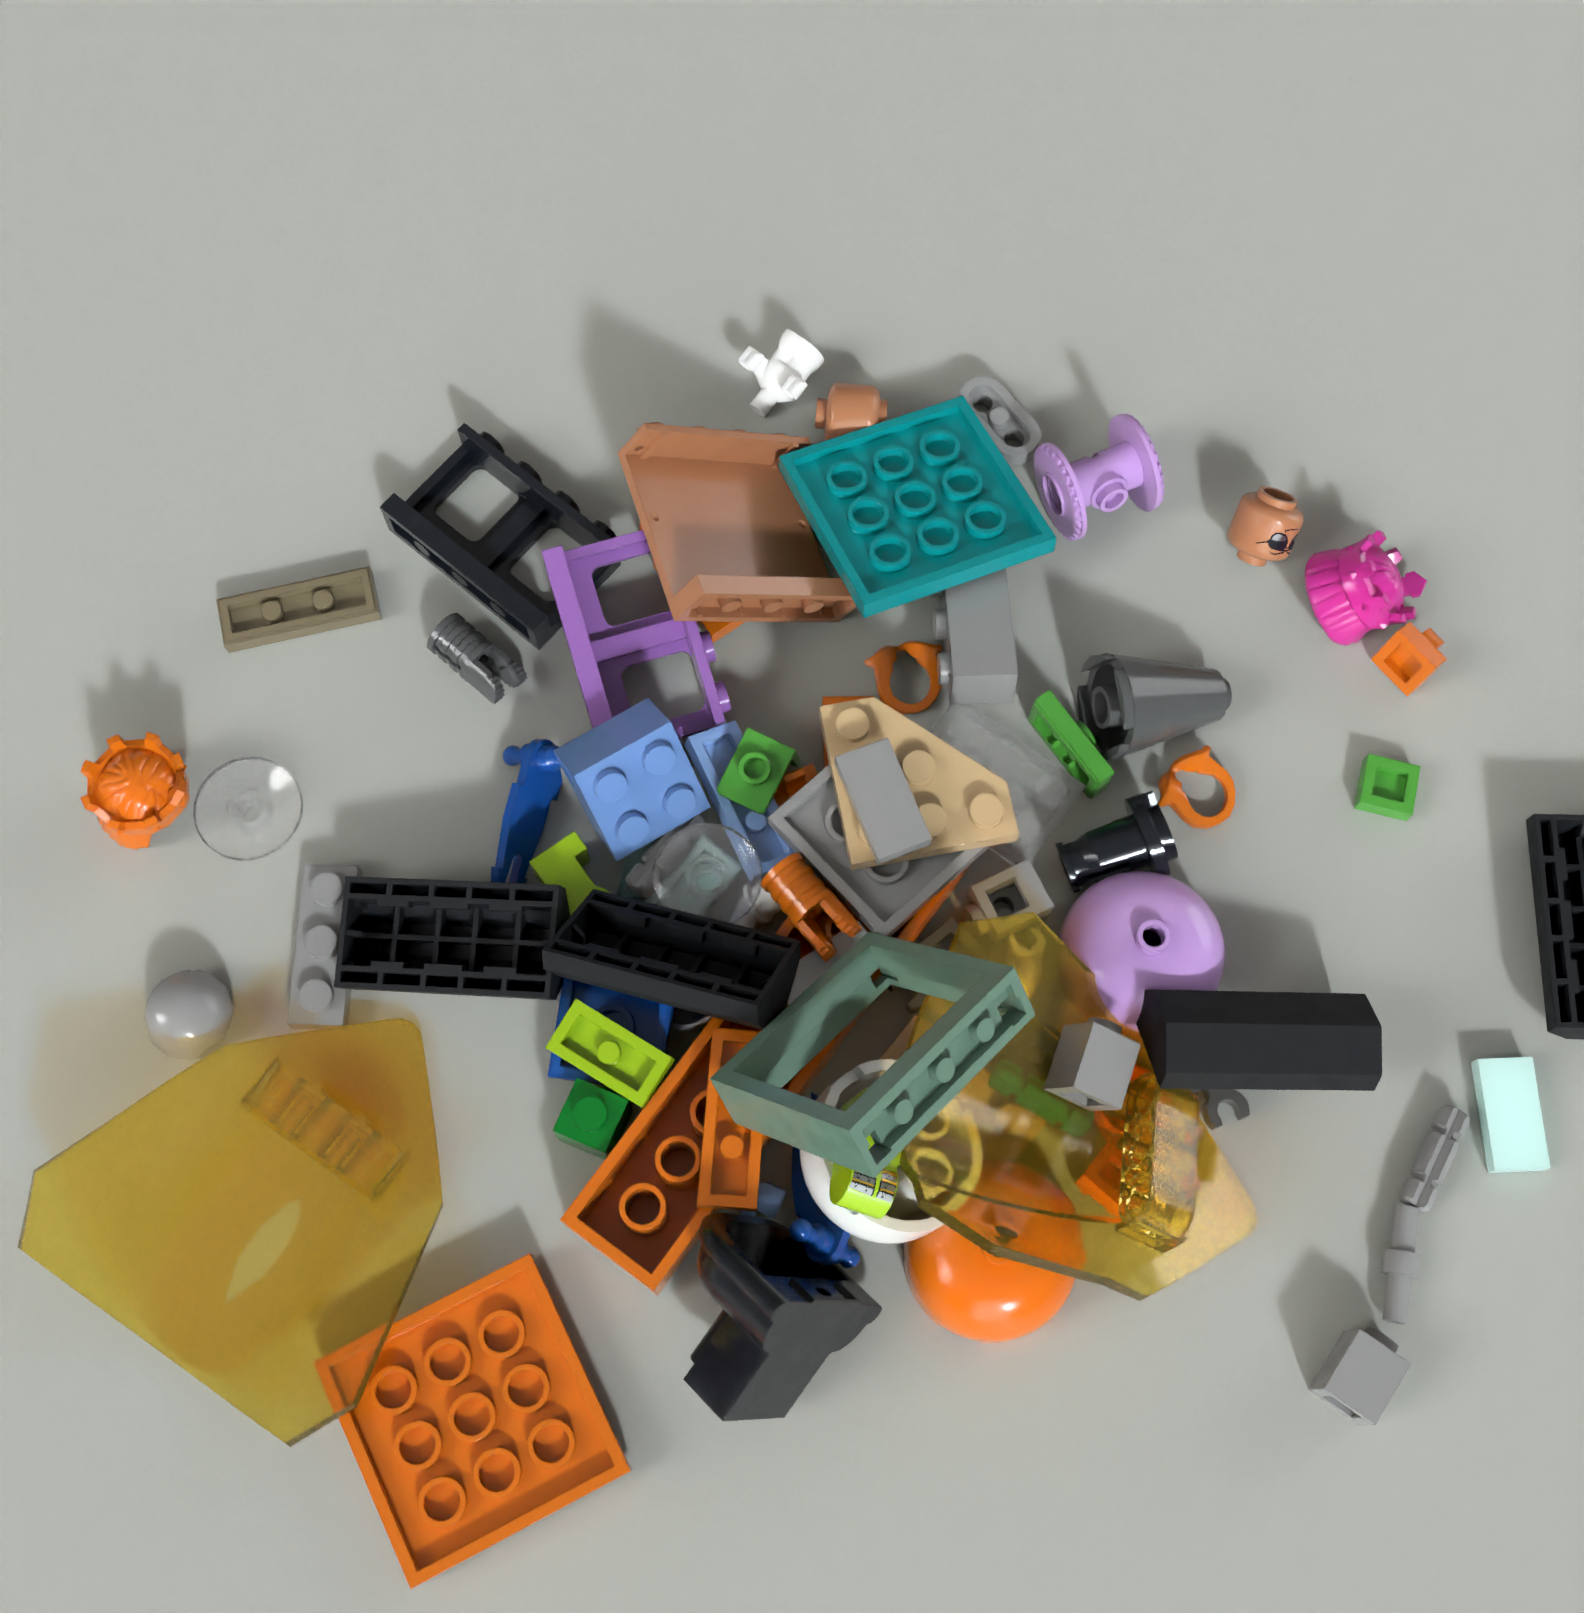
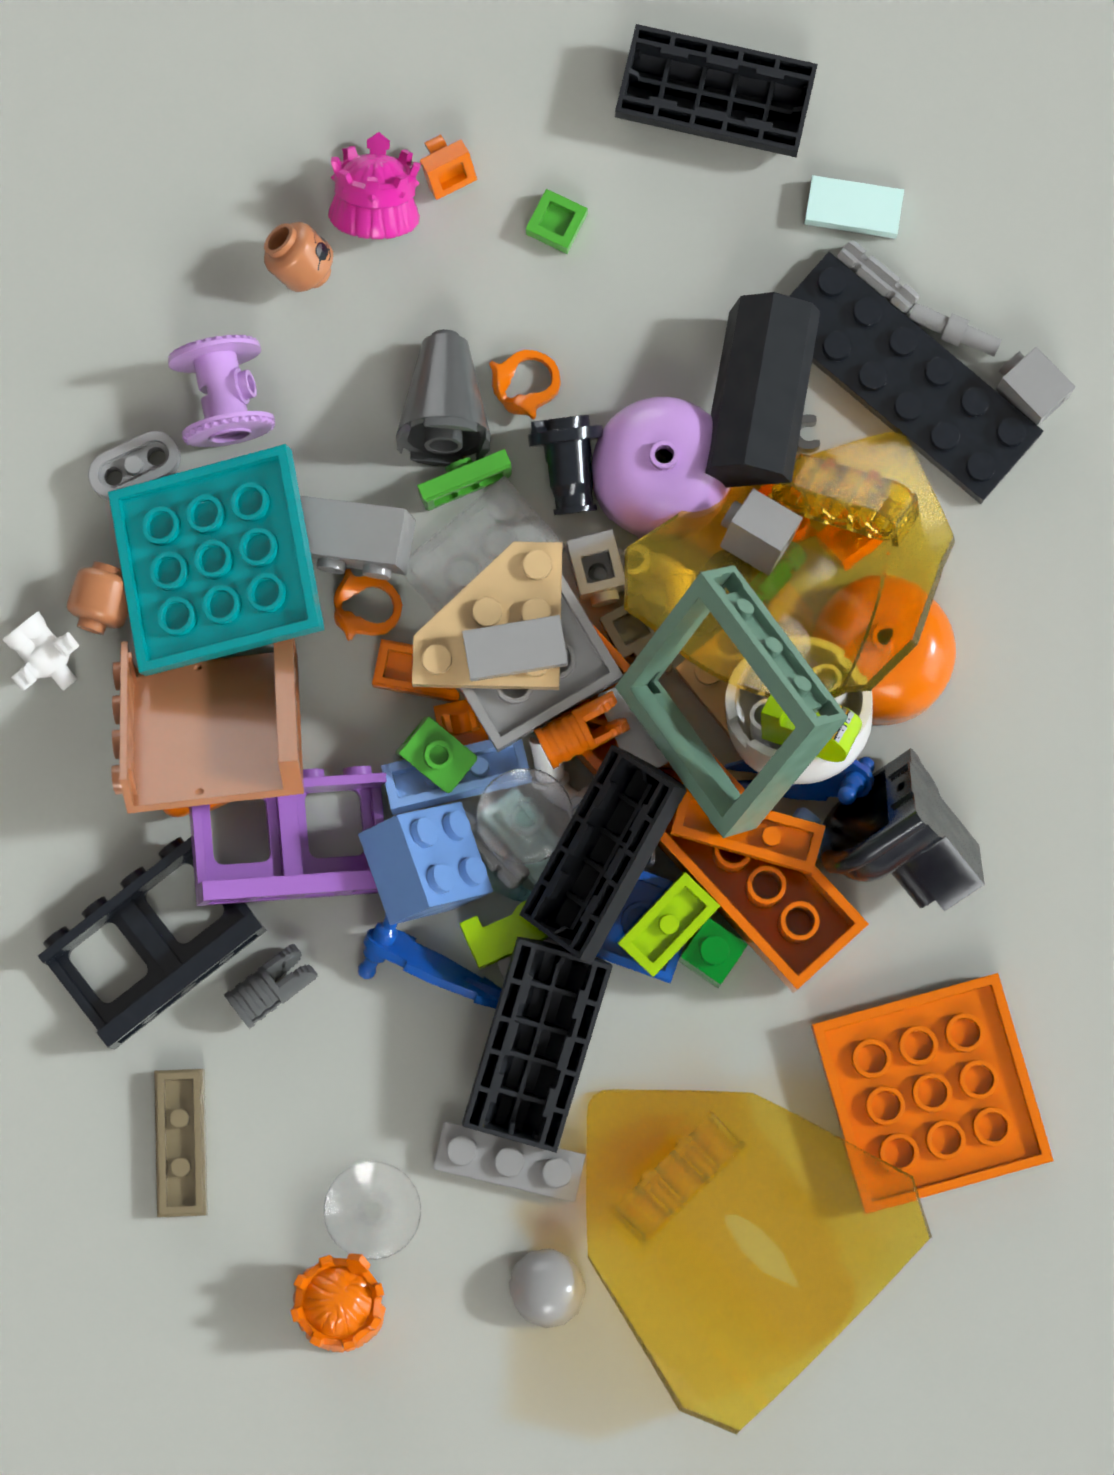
camera: 75 degrees left, 10 degrees up
(1322, 1228) = (913, 382): none -> black plate

